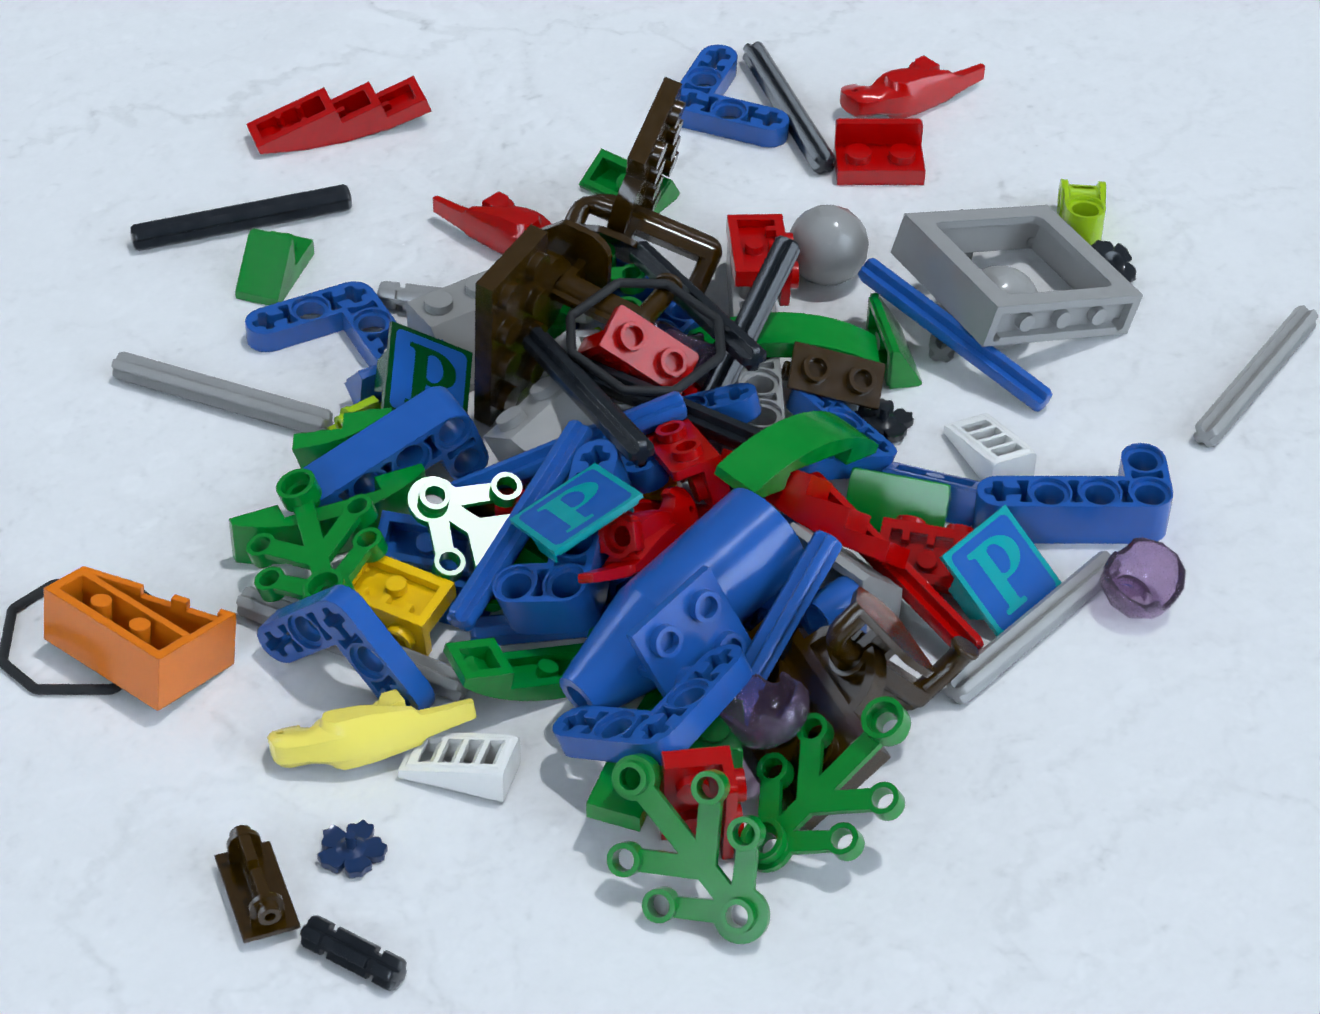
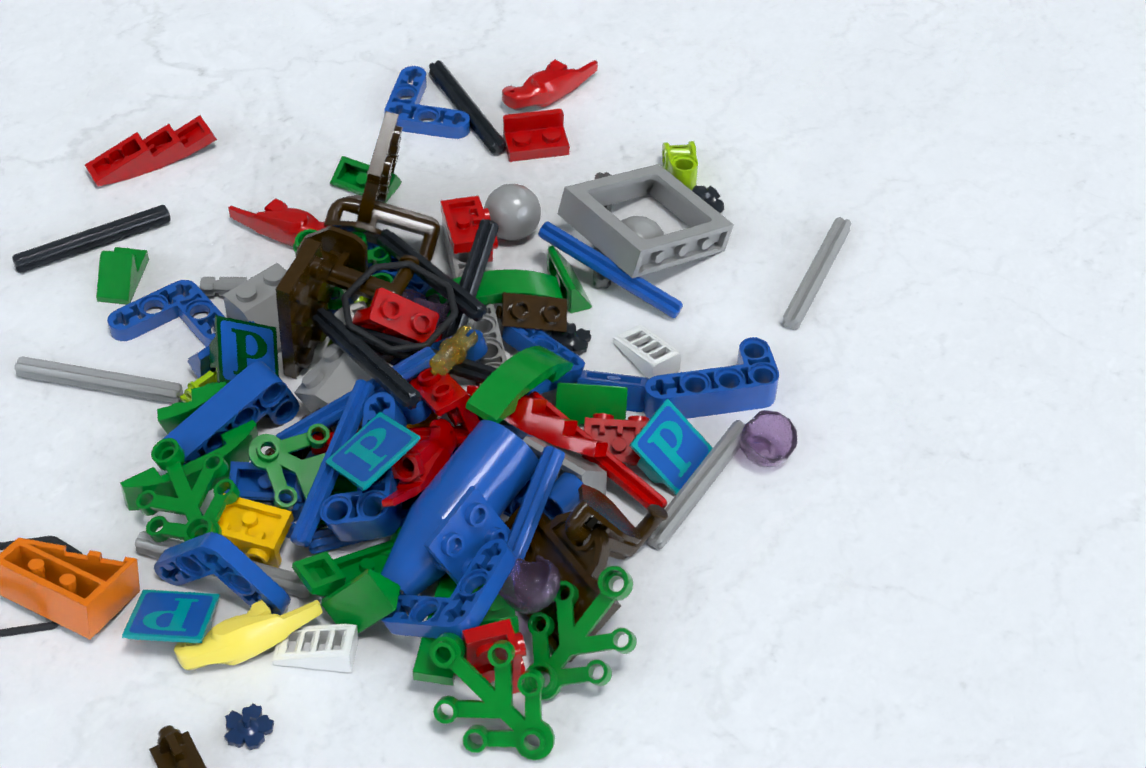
camera: 10 degrees left, 5 degrees up
(271, 695) = (171, 616): none -> piece
(533, 704) = (363, 600): none -> green slope
(709, 400) = (453, 351): none -> clear yellow axle

